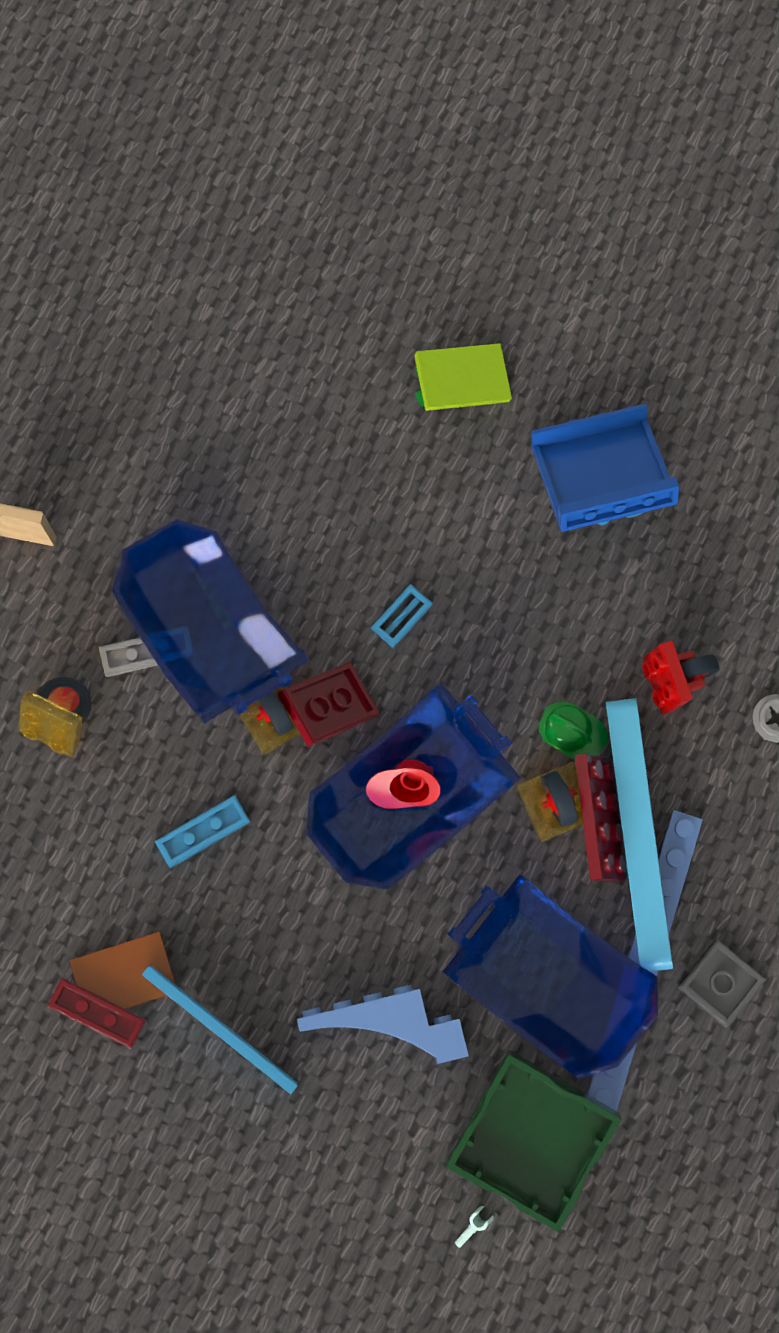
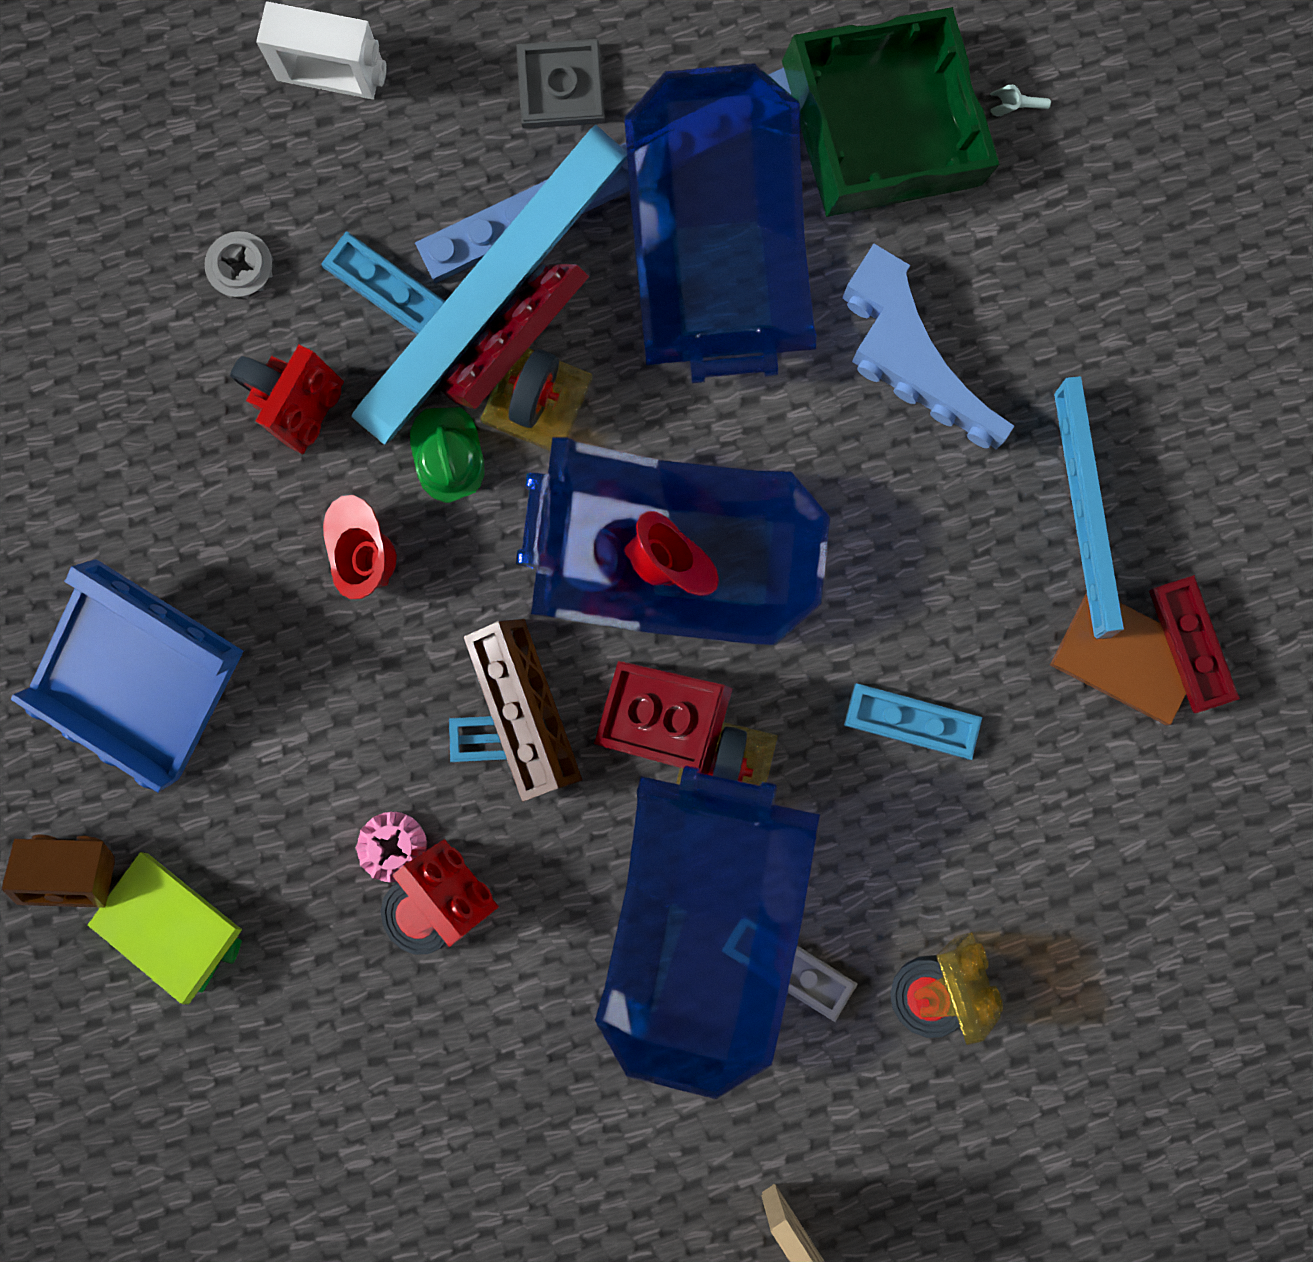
camera: 130 degrees left, 5 degrees up
(348, 512) = (434, 901): none -> red plate
(389, 528) = (385, 826): none -> bright pink gear
(402, 639) = (520, 709): none -> reddish brown fence
(537, 353) = (59, 872): none -> reddish brown brick
(561, 636) = (356, 548): none -> piece
(694, 783) = (382, 283): none -> dark azure tile

